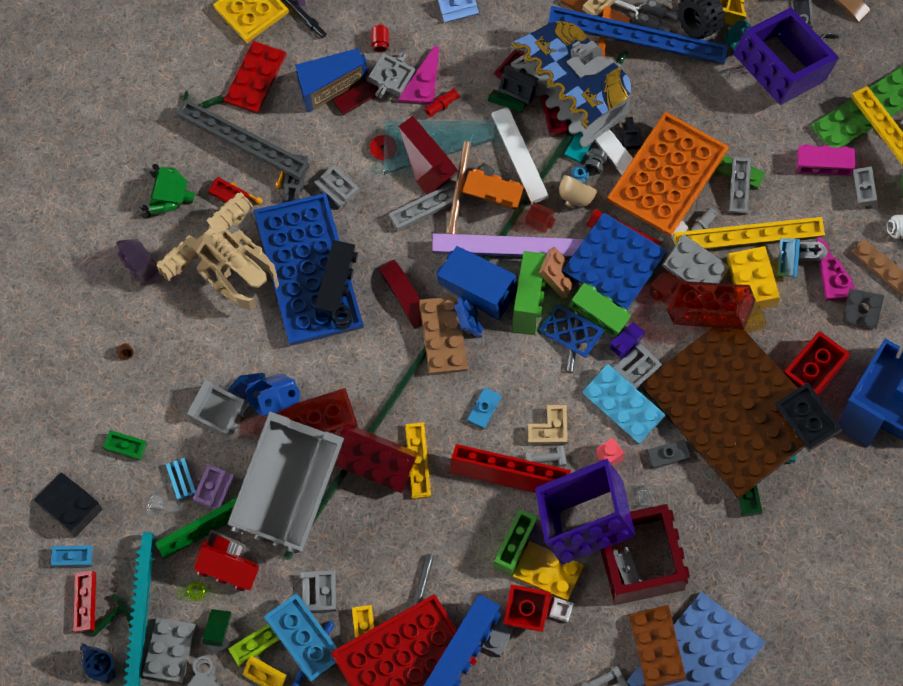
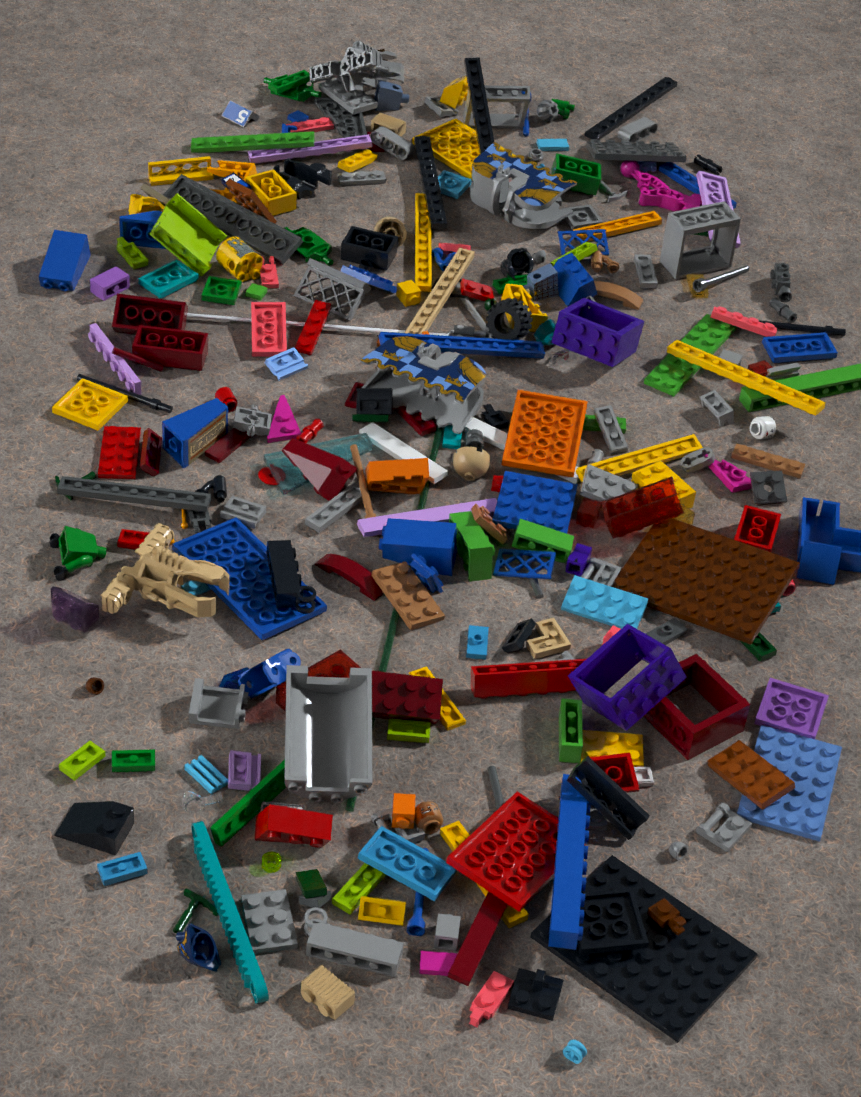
camera: 30 degrees left, 25 degrees down
(83, 430) = (82, 760): none -> lime plate
(84, 602) = (156, 903): red plate -> none
(281, 88) = (151, 452): none -> dark red plate
(323, 583) = (403, 811): none -> orange brick
(328, 148) = (219, 487): none -> black plant
(345, 593) = (428, 817): none -> medium nougat head
(374, 492) = (408, 730): none -> lime plate
(510, 629) = (609, 796): none -> black fence
(524, 415) = (518, 636): none -> black plate
(540, 218) = (448, 490): clear red brick -> none
(740, 583) = (791, 708): none -> medium lavender plate
(788, 257) = (683, 466): dark azure plate -> none
(808, 417) = (779, 558): black plate -> none
(825, 160) = (671, 398): dark pink brick -> none

